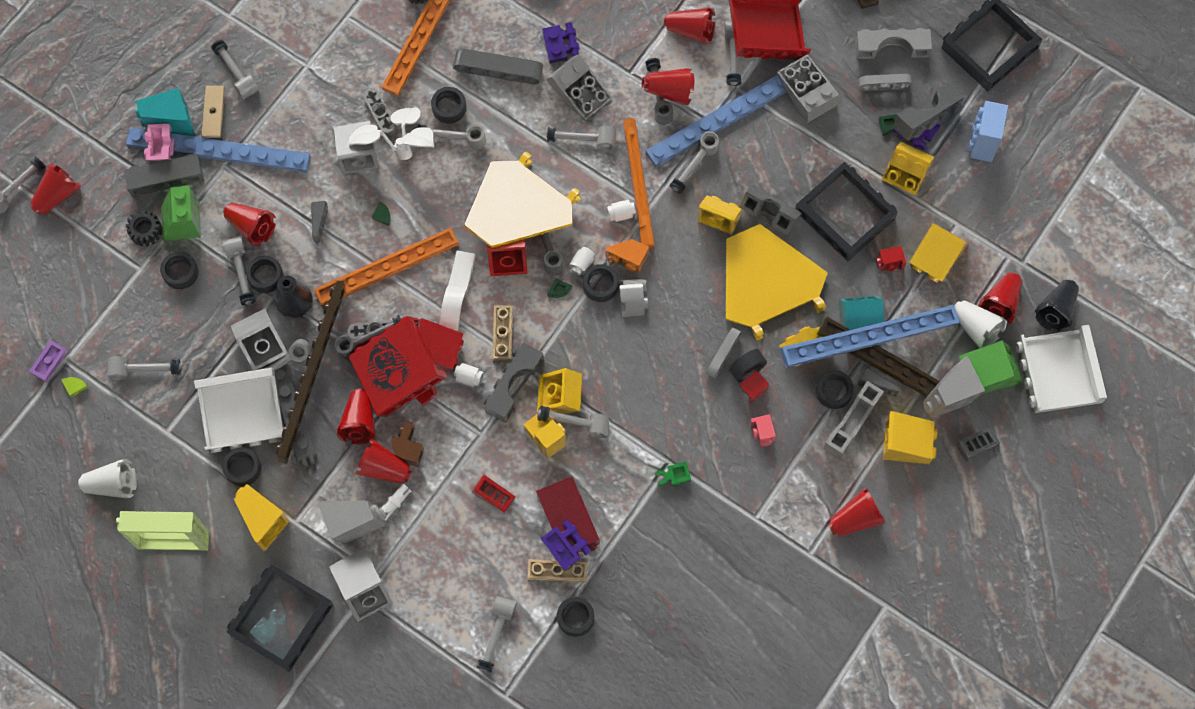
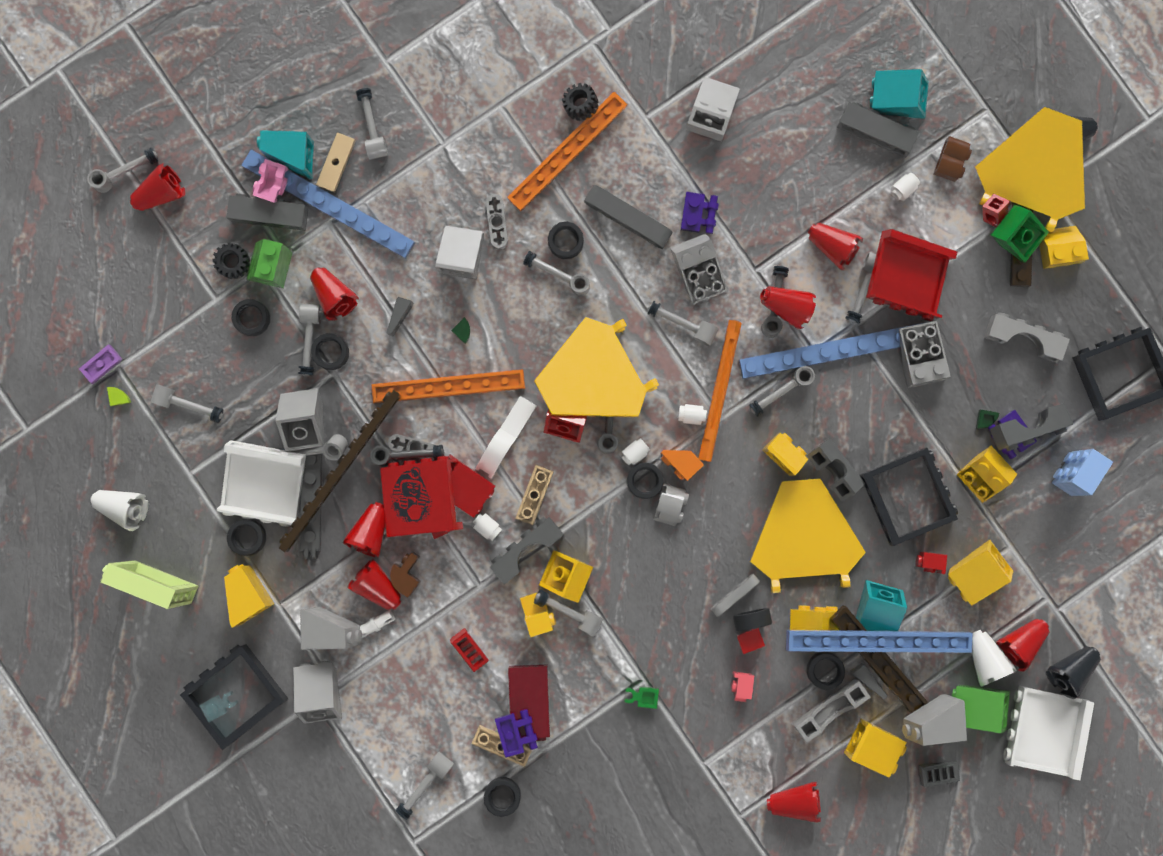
camera: 25 degrees right, 15 degrees up
(292, 297) = (349, 386): black cone -> none
(418, 137) = (521, 275): white plant -> none
(559, 289) = (603, 470): dark green tile -> none
(885, 82) = (1001, 375): light grey beam -> none

